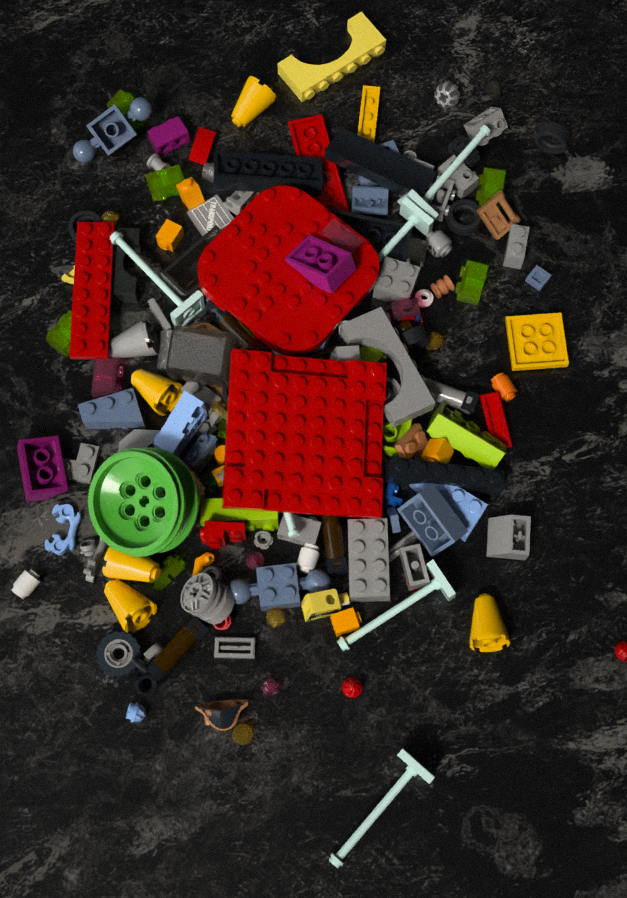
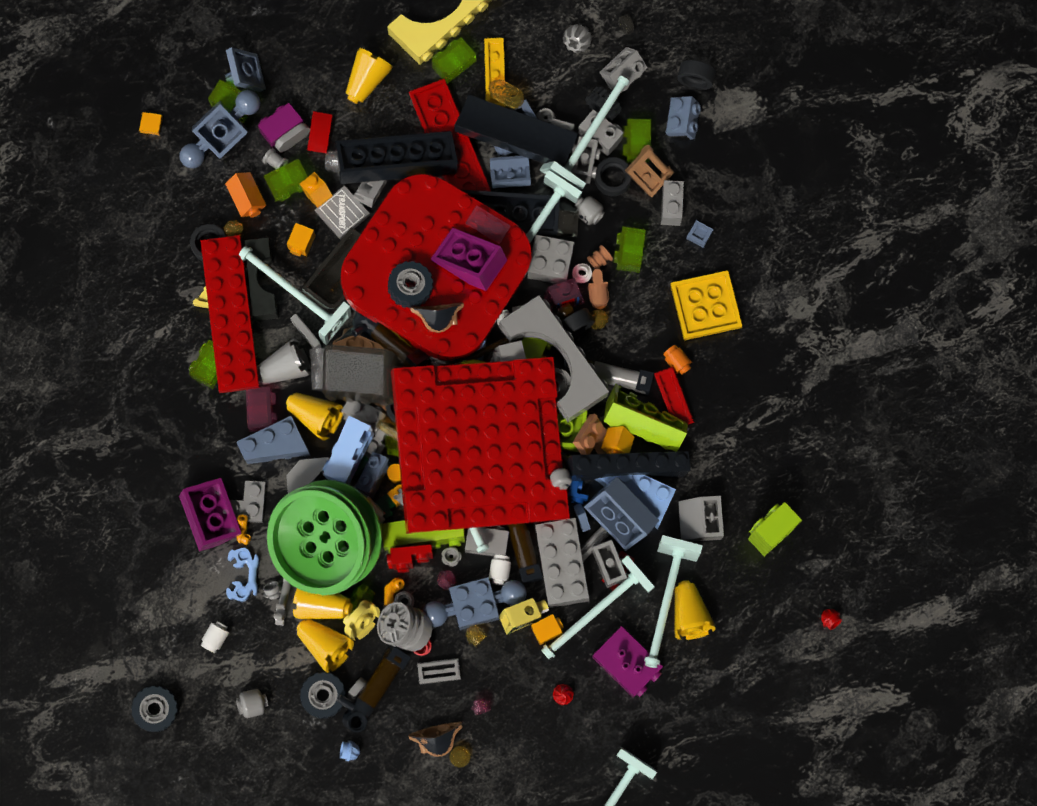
camera: 10 degrees left, 5 degrees up
(49, 652) = (251, 703): none -> light grey head
(53, 121) = (151, 123): none -> light orange tile
(70, 494) = (242, 522): none -> light orange arm
(126, 189) = (245, 194): none -> orange brick
(144, 83) = (244, 70): none -> sand blue tile
(167, 587) = (361, 620): none -> light yellow plate
(177, 147) = (292, 137): none -> light grey tile
(261, 288) = (413, 273): none -> black wheel
(283, 312) = (438, 317): none -> hat
(333, 100) = (453, 60): none -> clear neon green brick
(376, 132) = (505, 92): none -> clear yellow plate
(379, 477) = (561, 478): none -> light grey piece
(420, 665) = (624, 661): none -> magenta piece
(437, 315) = (598, 290): none -> nougat arm
(484, 563) = (678, 549): none -> light aqua tile
(535, 174) = (683, 117): none -> sand blue bracket
(579, 554) = (773, 528): none -> lime brick

